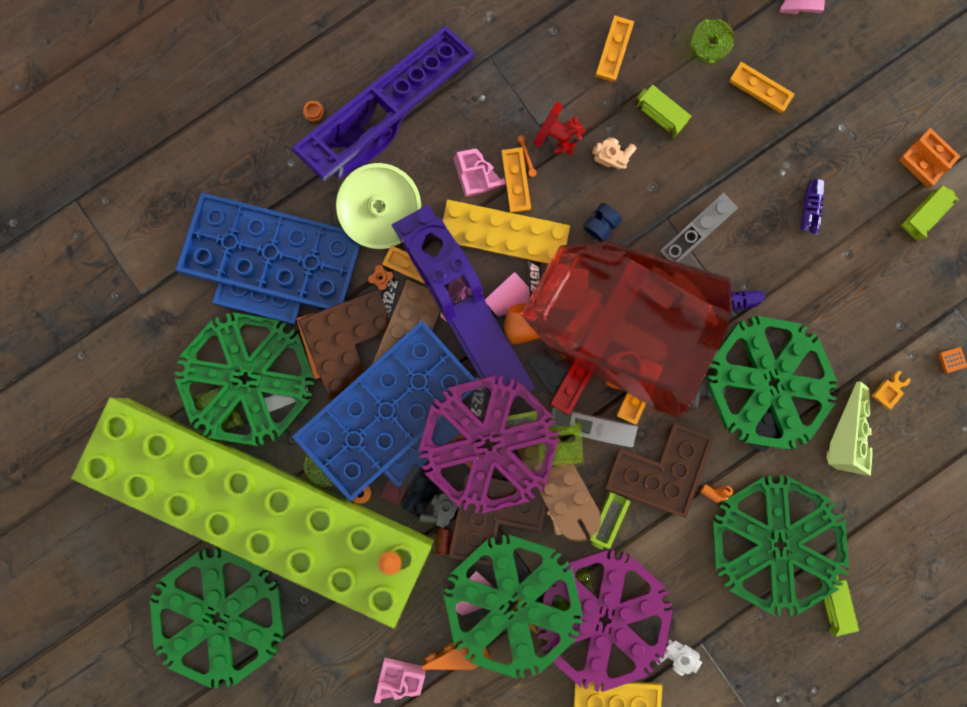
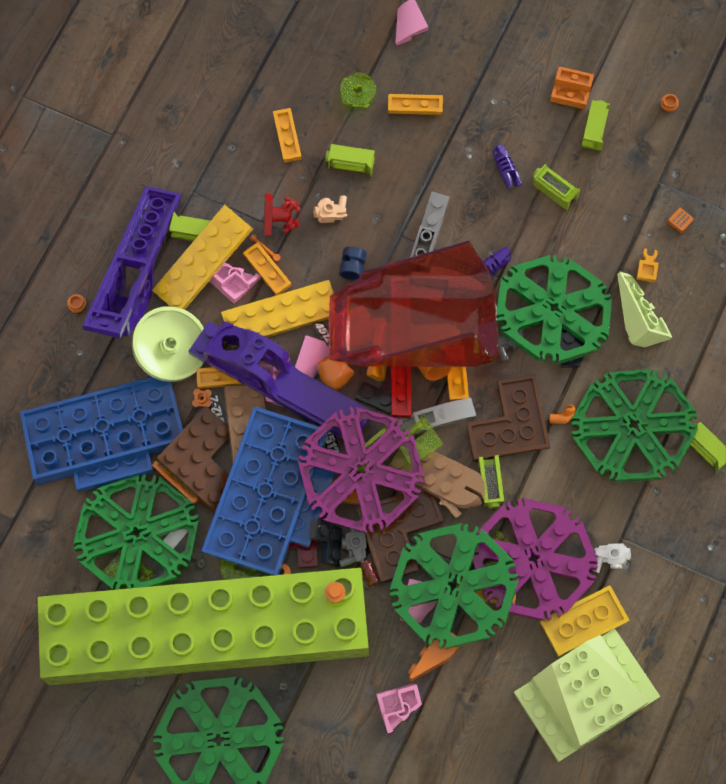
camera: 25 degrees left, 15 degrees down
(458, 135) = (202, 259): none -> yellow plate
(468, 98) = (186, 227): none -> lime window
(849, 255) = (554, 187): none -> lime window

